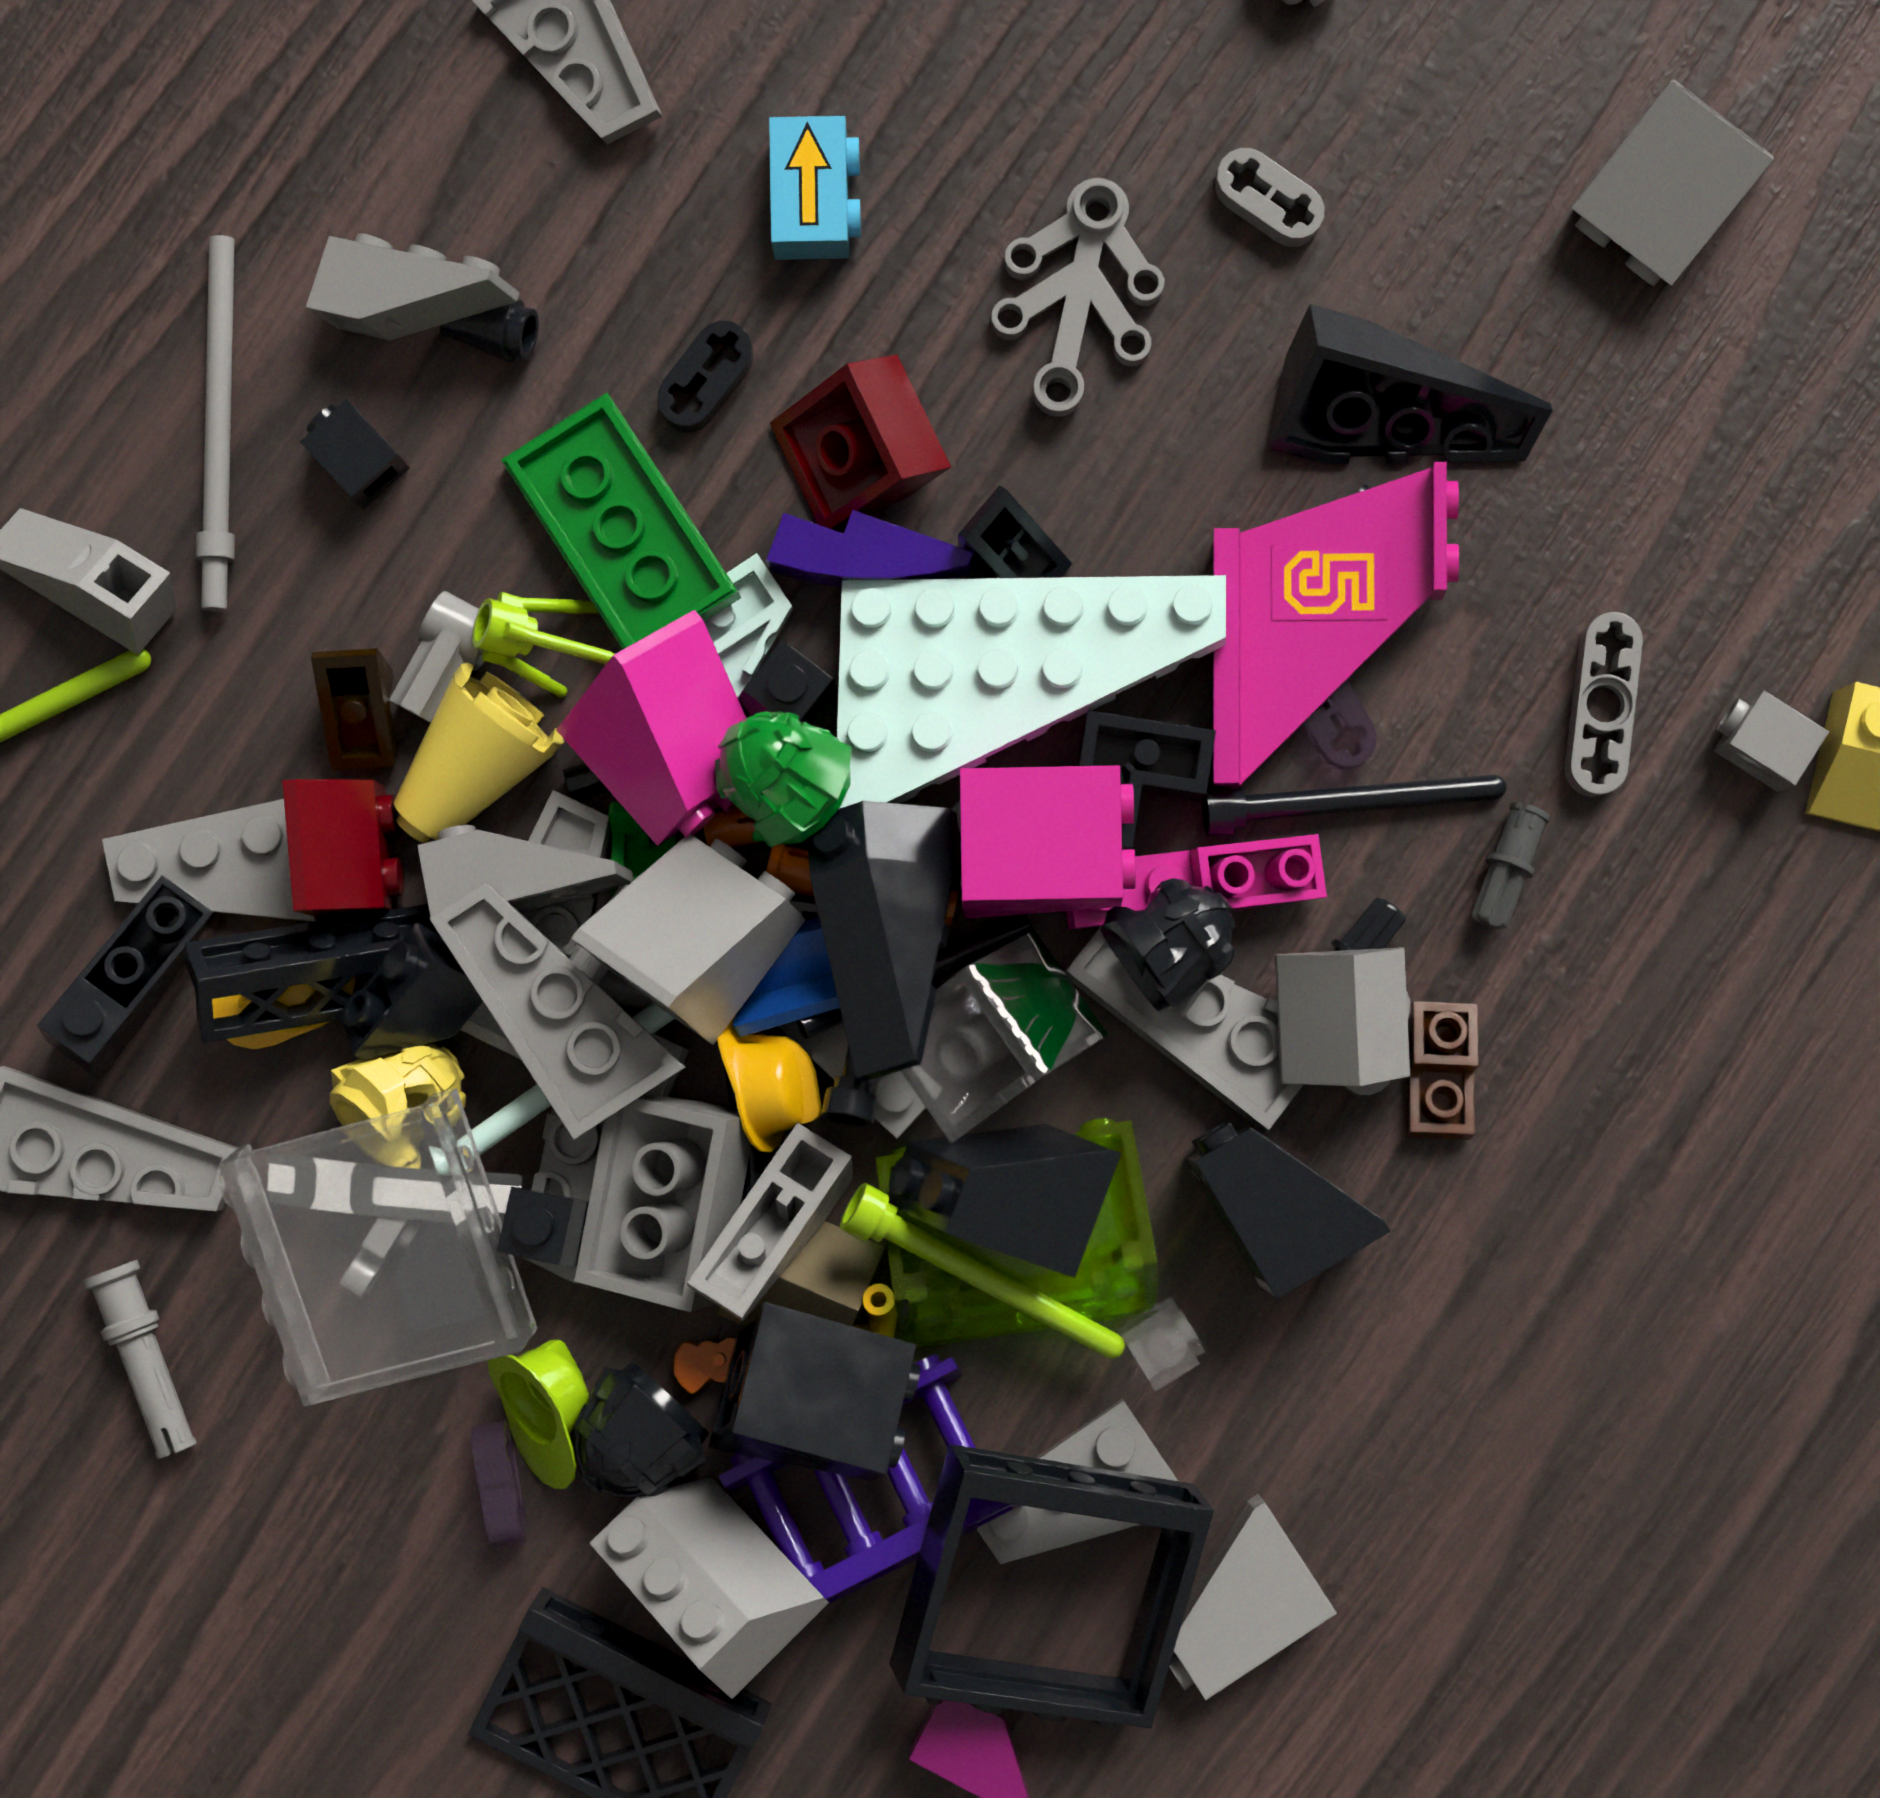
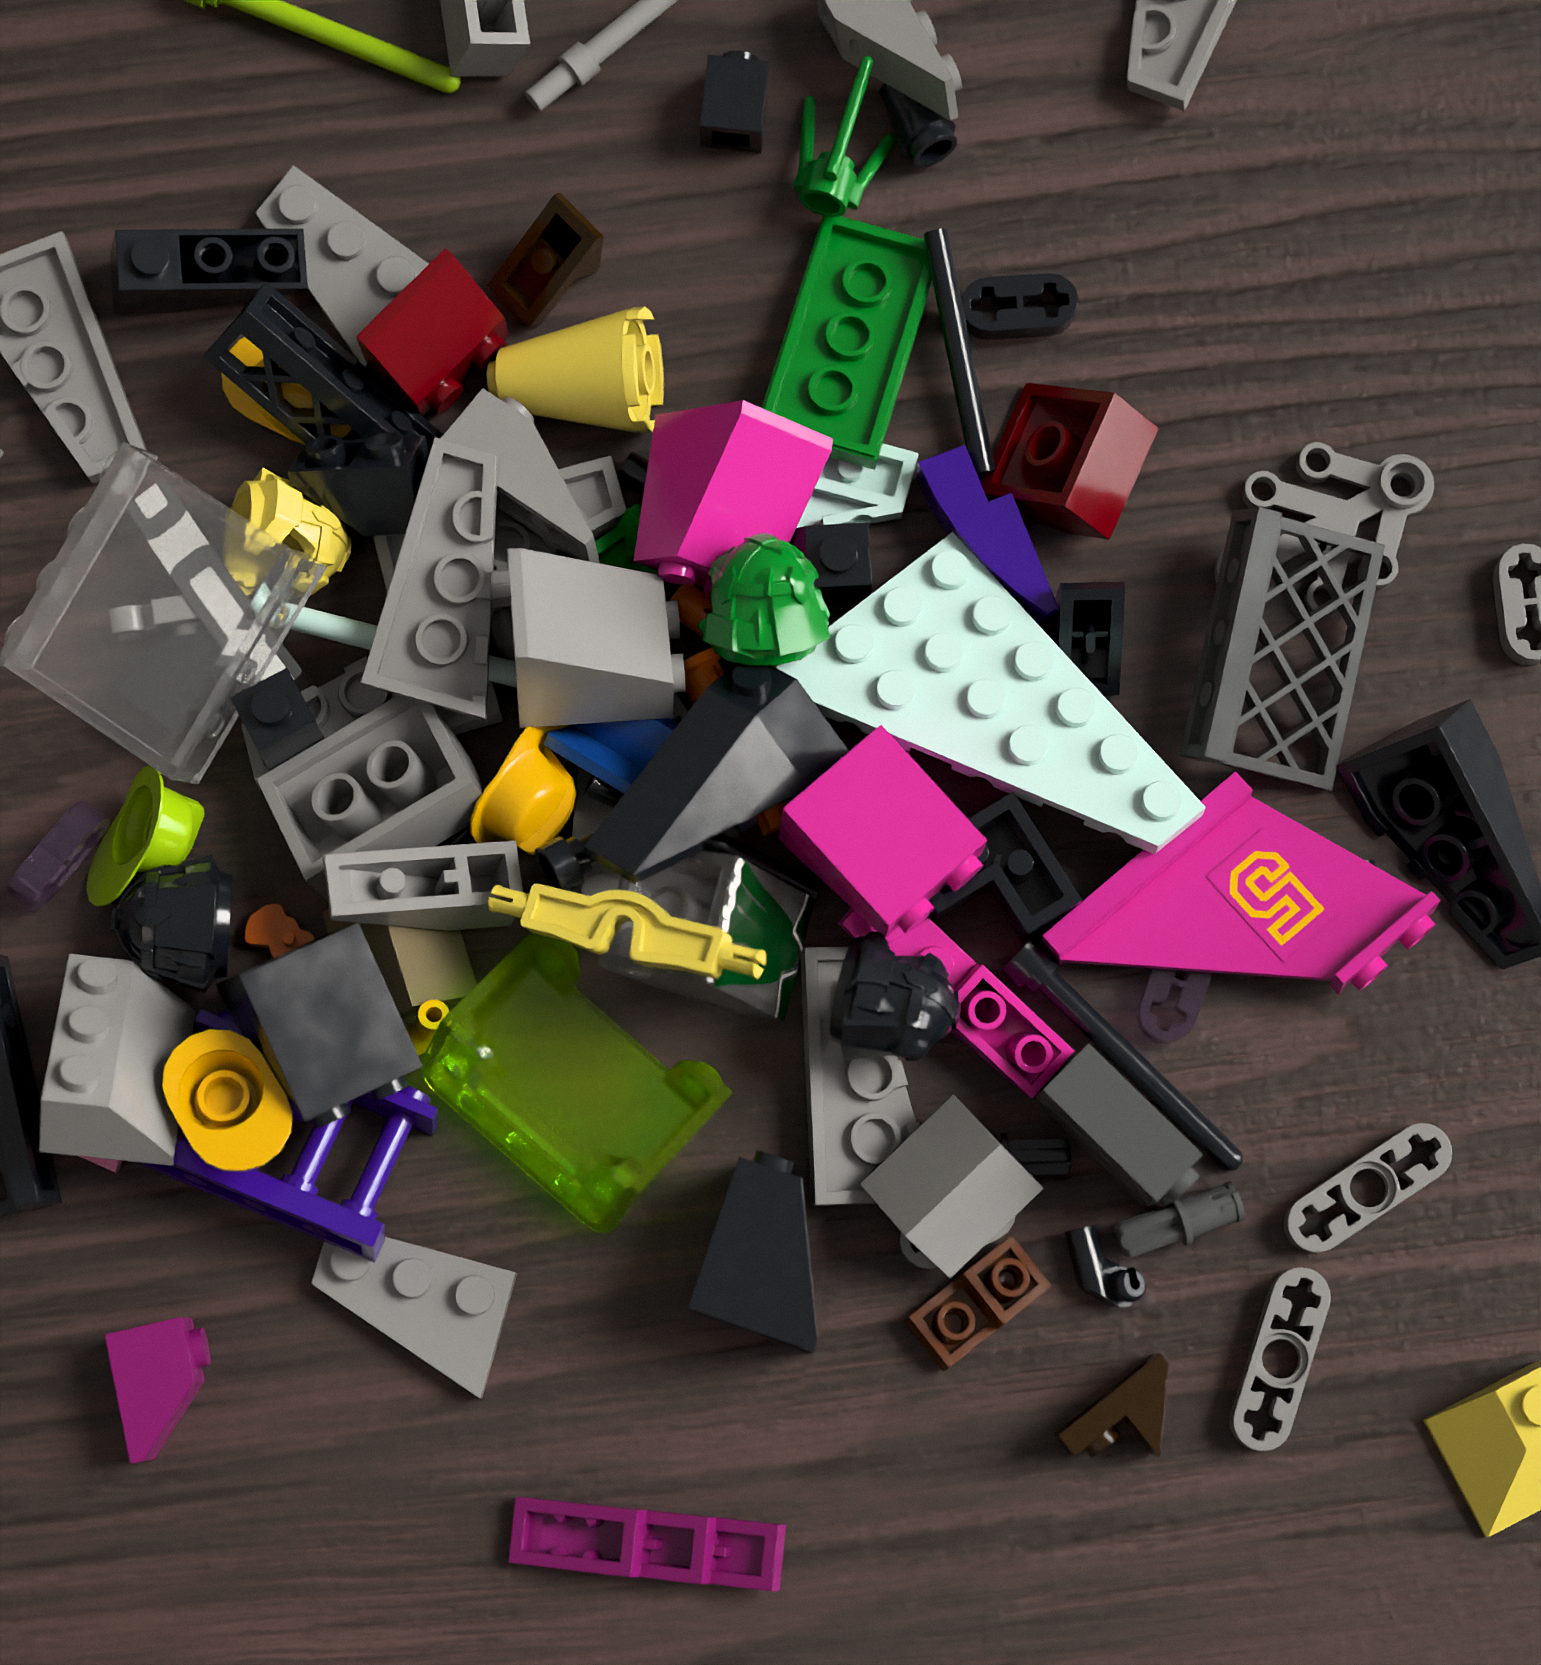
camera: 50 degrees right, 5 degrees down
(443, 648) = (661, 283): light grey piece -> none
(482, 435) = (829, 182): none -> green plant
(506, 629) = (700, 318): lime plant -> none
(701, 451) = (959, 350): none -> black bar
(811, 187) = (1227, 262): medium azure brick -> none
(816, 1519) = (227, 1100): none -> yellow piece
(873, 1217) = (491, 954): lime piece -> none
(975, 1081) = (656, 936): none -> light yellow piece
(1009, 1190) = (597, 1039): black slope -> none
(1068, 1489) = (414, 1280): black window -> none
(1102, 427) = (1233, 636): none -> dark grey fence
(1162, 1343) = (584, 1262): clear brick -> none
(1246, 1604) = (437, 1498): light grey slope -> none
(1411, 851) = (1120, 1129): none -> dark grey brick
(1411, 1474) = (647, 1543): none -> magenta slope
(1500, 960) = (1099, 1275): none -> black arm
(1613, 1014) = (1136, 1399): none -> dark brown slope
(1686, 928) = (1279, 1409): none -> light grey beam
(1769, 739) = (1452, 1337): light grey brick -> none

